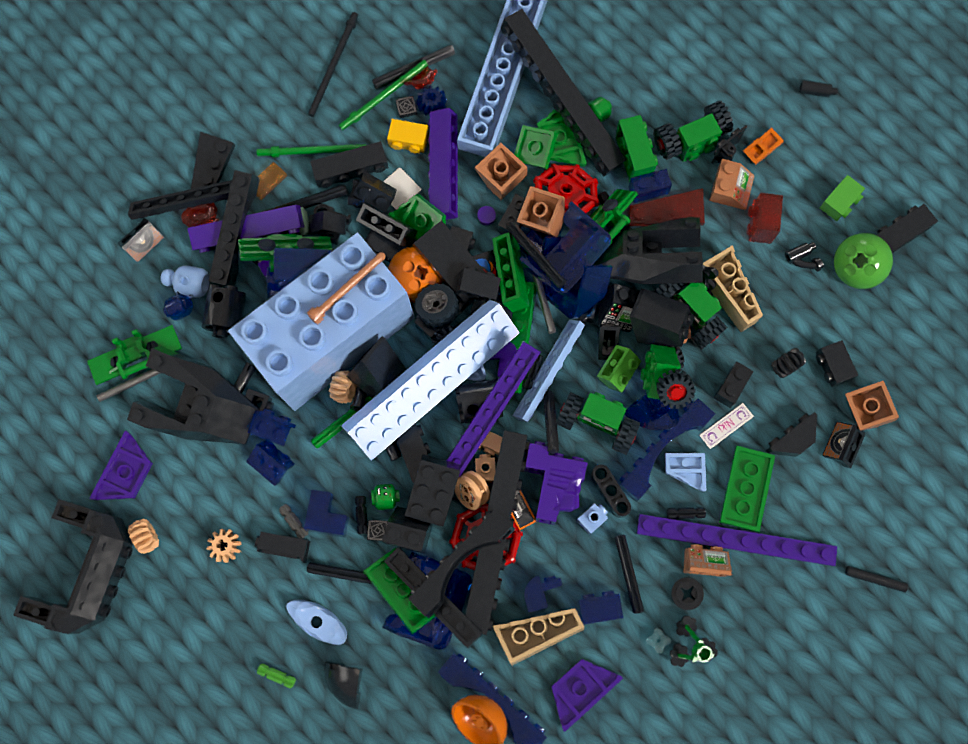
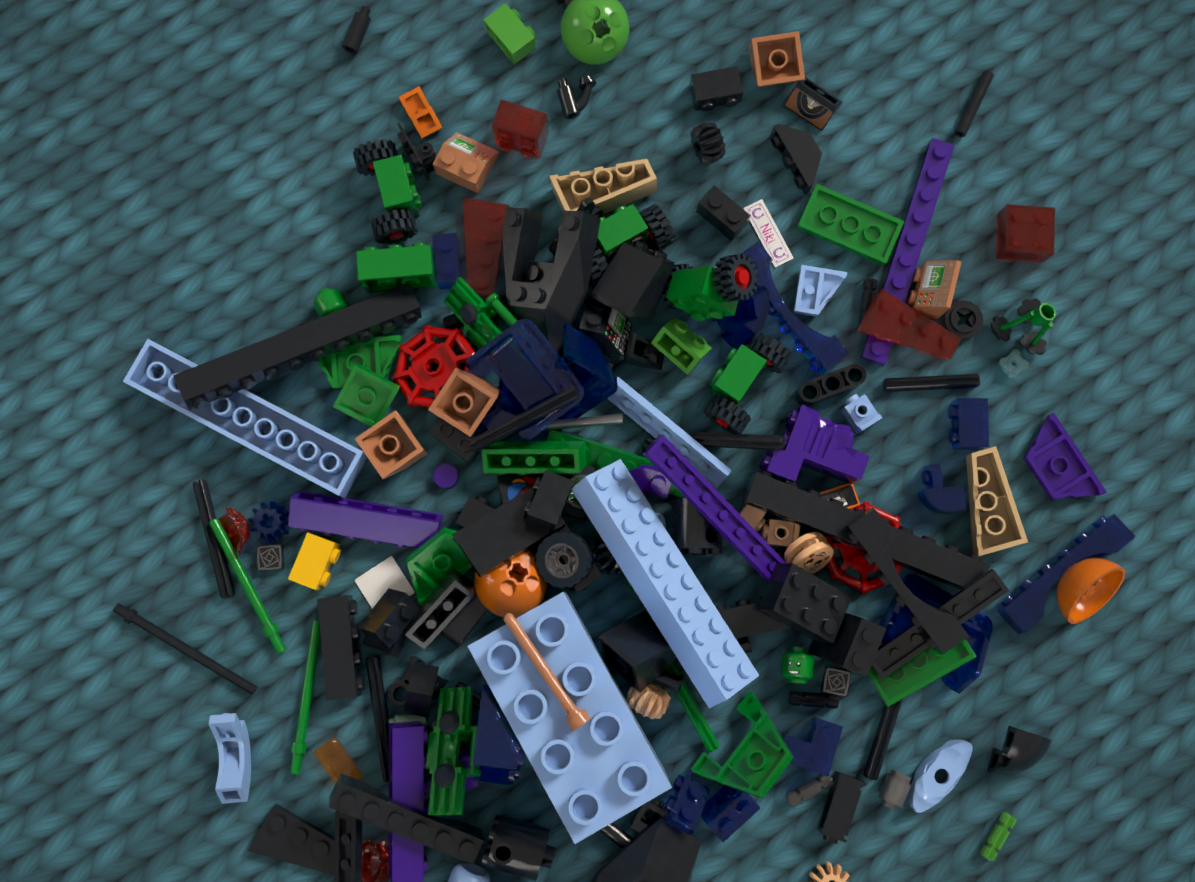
camera: 85 degrees left, 5 degrees up
(262, 110) = (234, 757): none -> light blue arch
(301, 587) = (895, 790): none -> flat silver brick
(311, 473) = (756, 760): none -> green wing
(670, 544) = (899, 323): none -> clear red wing
(771, 635) = (1025, 233): none -> clear red brick

